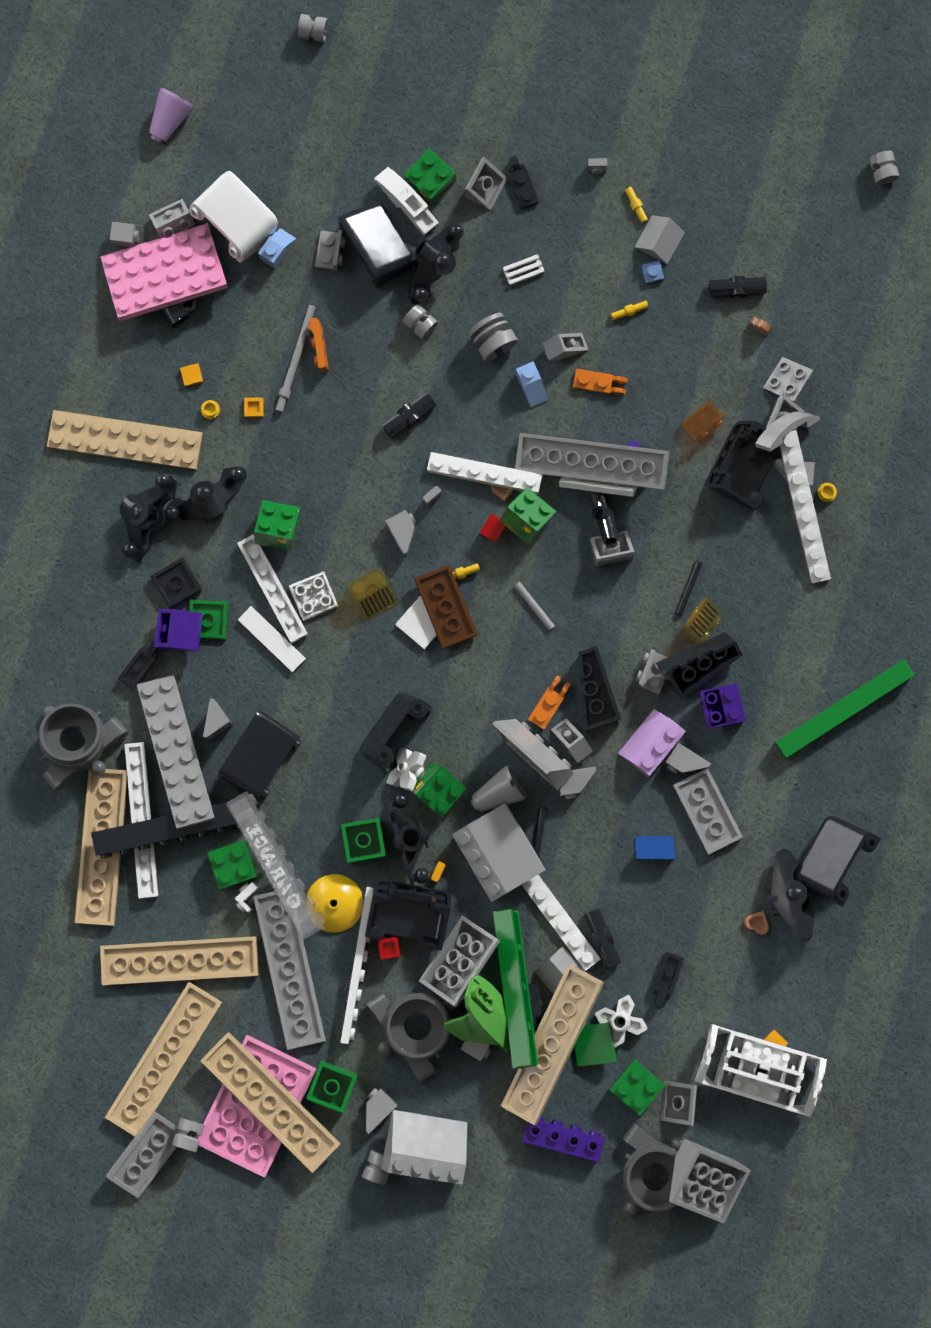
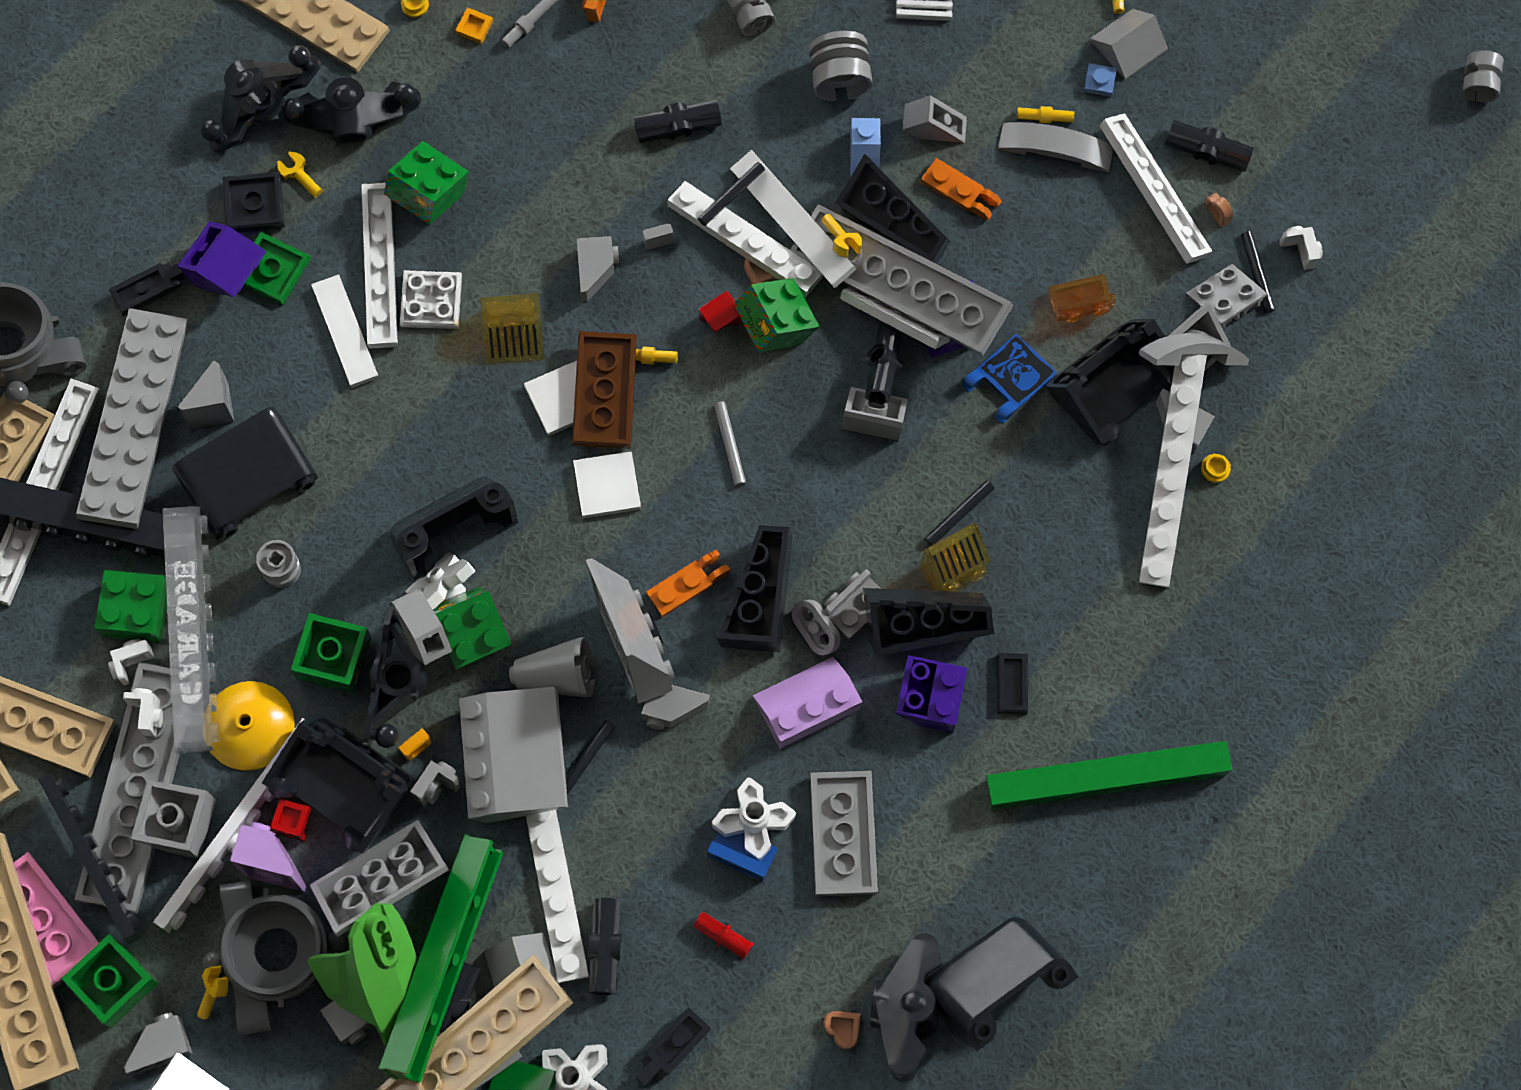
camera: 20 degrees right, 10 degrees down
(195, 552) = (297, 172): none -> yellow bar
(278, 925) = (150, 715): none -> white bracket
(279, 1017) = (97, 868): none -> black plate
(305, 801) = (278, 564): none -> light grey wheel
(321, 978) = (174, 818): none -> light grey slope
(389, 978) = (264, 858): none -> lavender slope
(394, 1065) = (214, 988): none -> yellow bar
(413, 805) = (421, 627): none -> light grey slope
(459, 893) = (428, 785): none -> light grey bracket
(464, 450) = (729, 195): none -> black bar
(473, 664) = (607, 484): none -> white tile
(508, 448) = (795, 221): none -> white tile
(546, 450) = (842, 239): none -> yellow bar
(565, 418) = (887, 208): none -> black wedge
(572, 740) = (695, 648): light grey slope -> none
(637, 696) = (815, 629): none -> light grey plate
(644, 327) = (1057, 143): none -> light grey slope
(647, 817) = (738, 821): none -> white plant
(665, 901) = (723, 935): none -> red axle
(683, 486) = (1014, 373): none -> flag
(684, 760) = (843, 746): light grey slope -> none
(716, 329) = (1155, 188): none -> white plate
(764, 677) = (1012, 683): none -> black tile
(799, 354) = (1257, 270): none -> black bar
(826, 328) = (1309, 249): none -> white bracket

